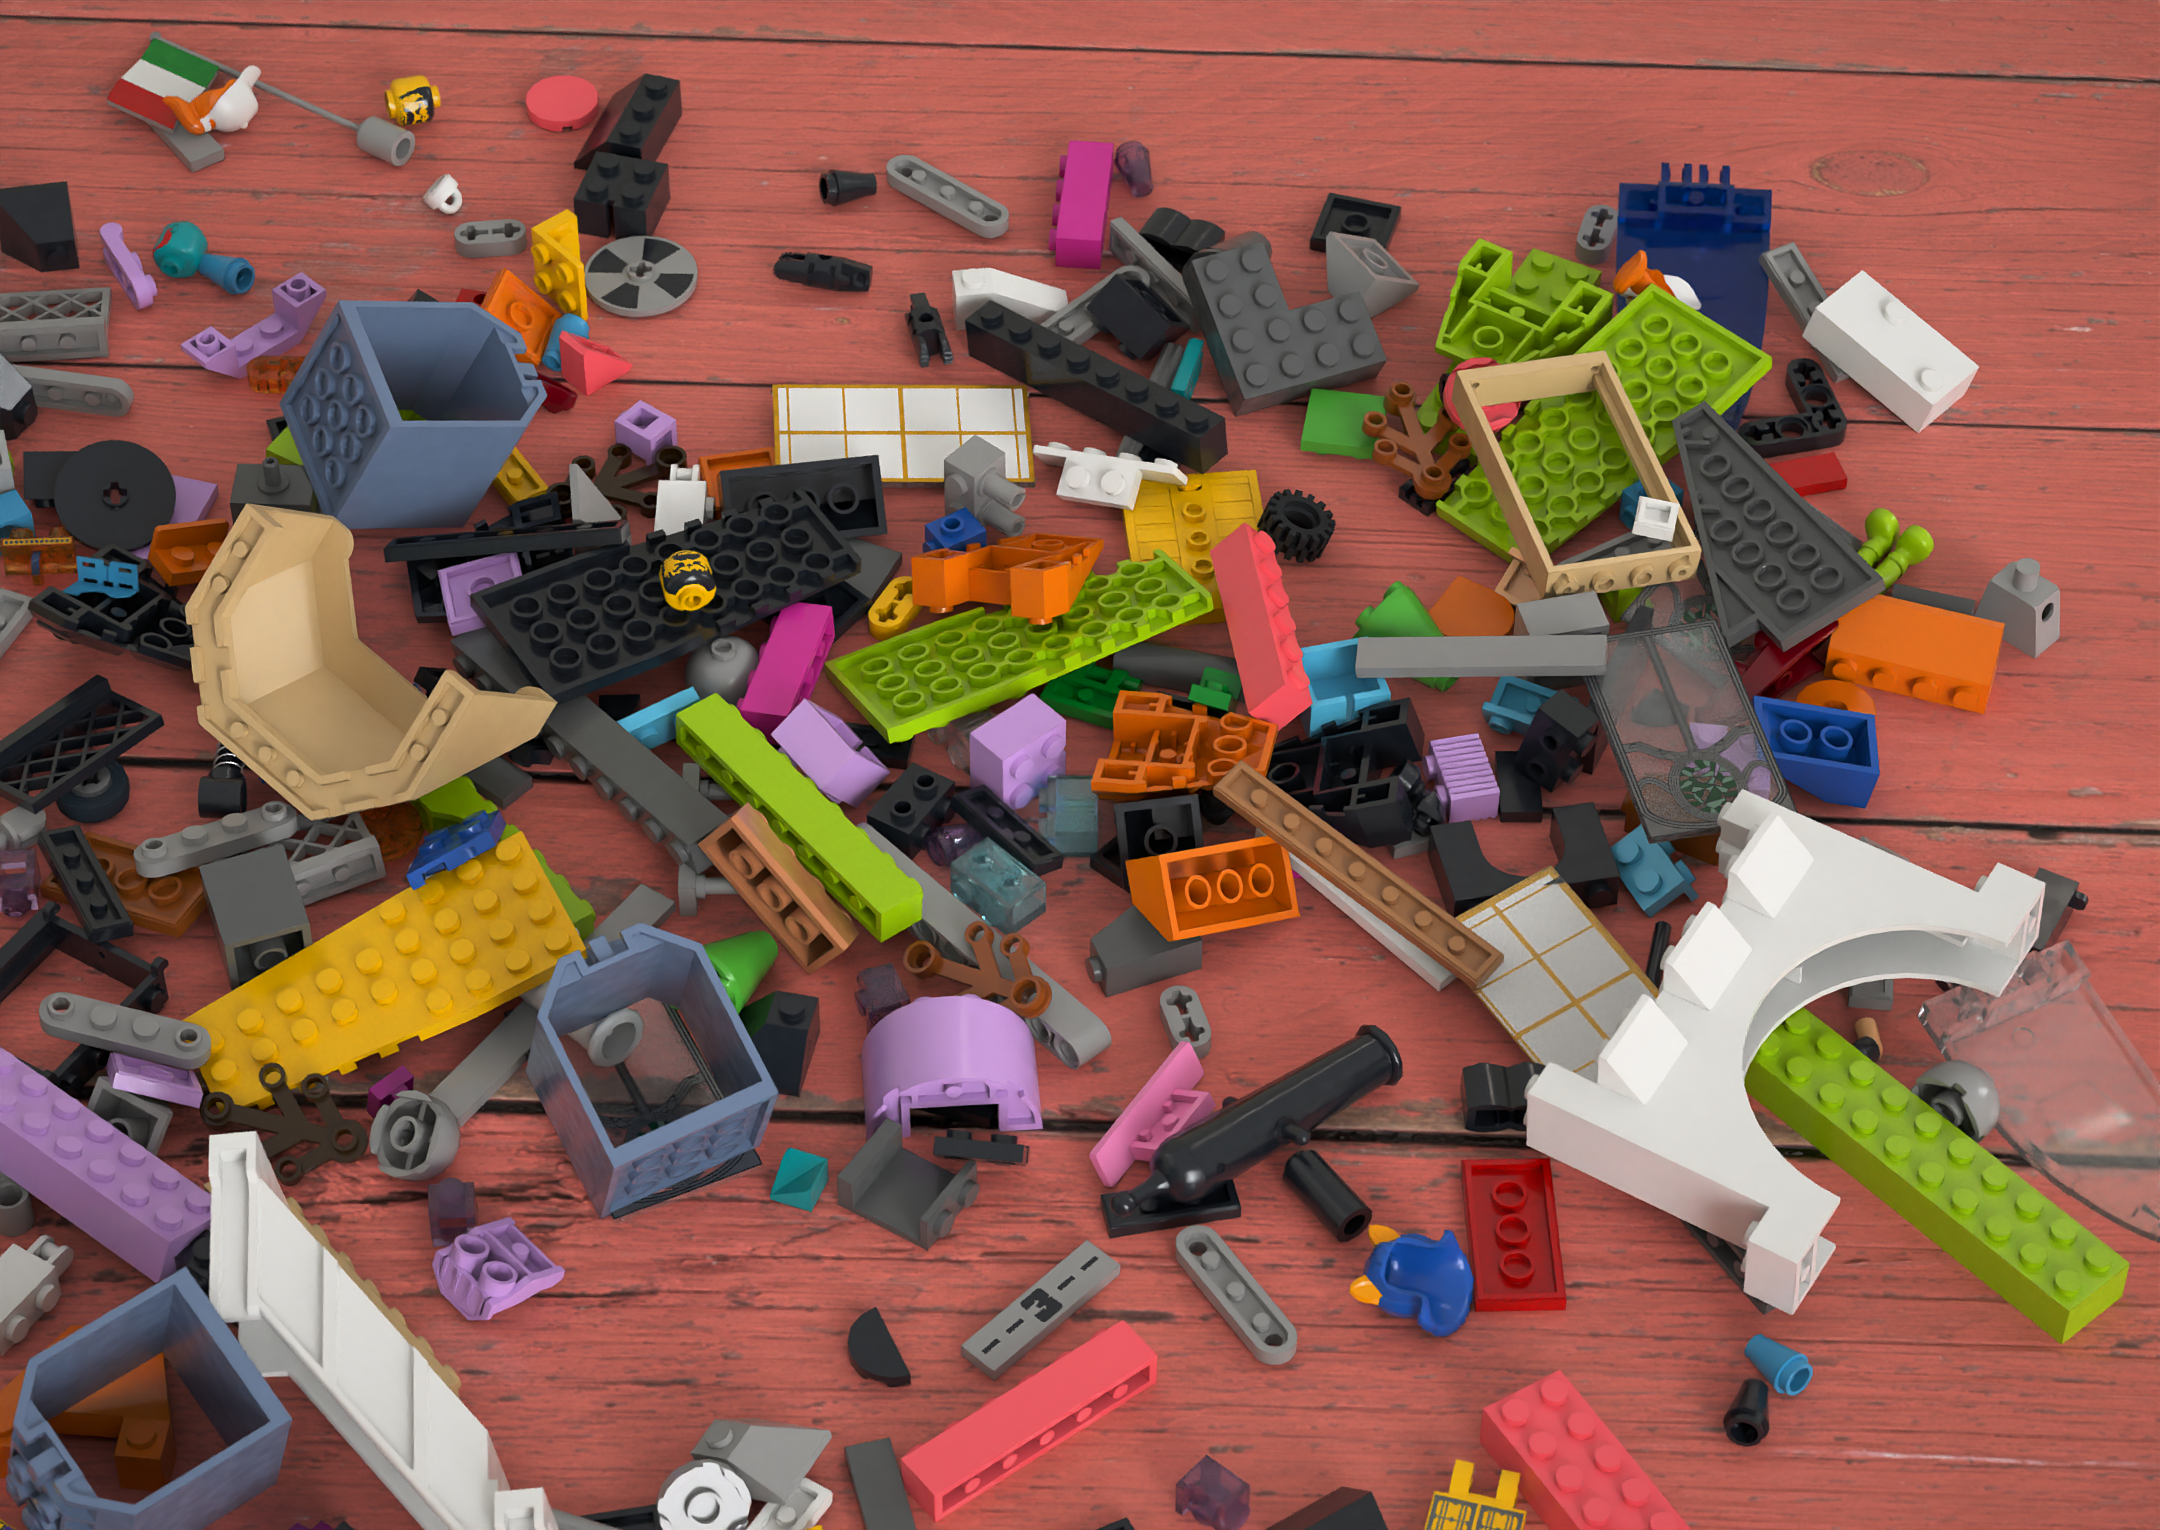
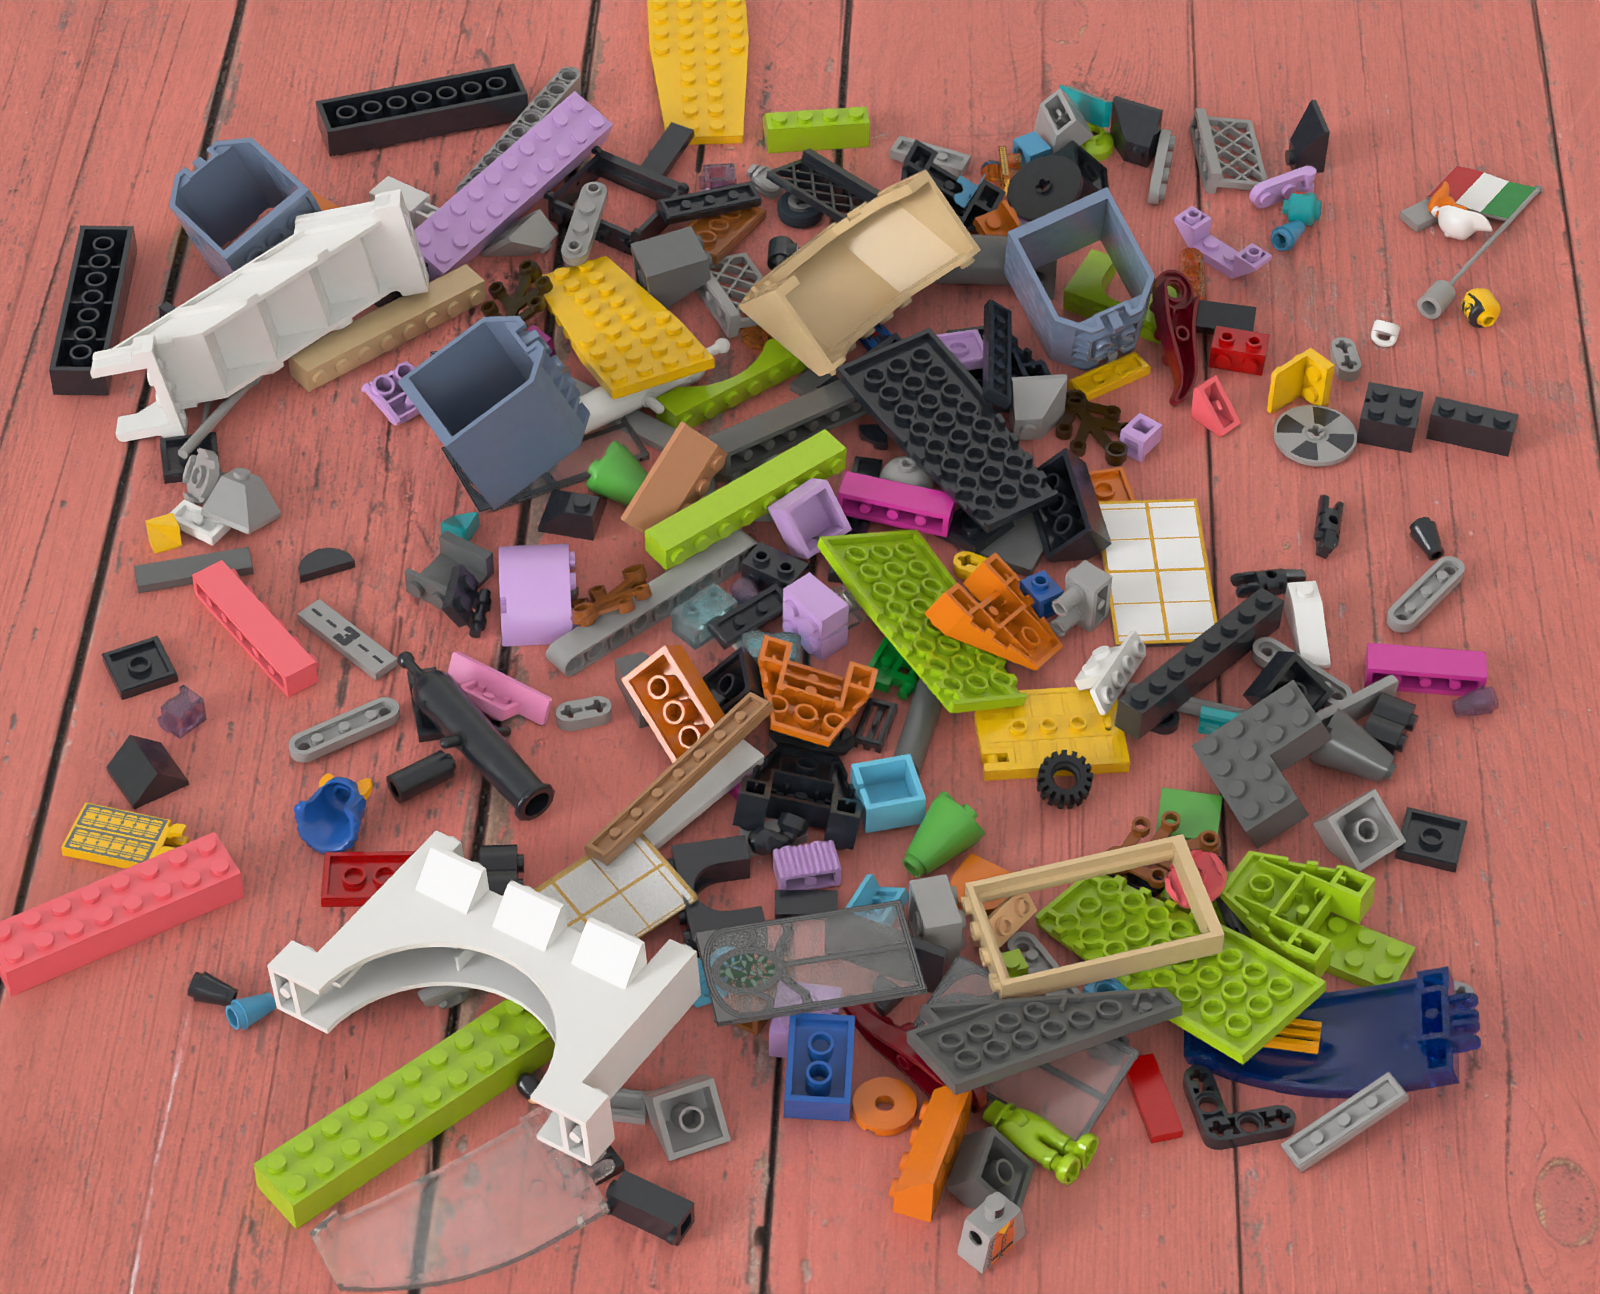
camera: 90 degrees right, 0 degrees up
(154, 1079) = (543, 237): lavender tile -> none
(215, 840) = (740, 248): light grey plate -> none
(455, 845) = (707, 336): blue wing -> none
(522, 310) = (1246, 365): orange tile -> none
(562, 102) = (1503, 389): coral tile -> none
(569, 323) = (1241, 396): dark azure cone -> none
(658, 721) = (858, 450): medium azure bracket -> none
(682, 500) = (1047, 444): white brick -> none
(687, 578) = (943, 425): head -> none
(879, 993) = (606, 560): brick -> none
(1217, 690) = (872, 721): green bracket -> none
(1261, 626) = (931, 736): coral brick -> none
(1481, 656) = (886, 849): light grey tile -> none
(1557, 741) = (819, 894): black brick -> none
(1636, 277) = (1342, 1005): orange hair -> none
(1655, 518) = (1028, 952): white tile -> none
(1890, 351) = (1292, 1165): white brick -> none
(1962, 1096) = (460, 1123): light grey cylinder -> none

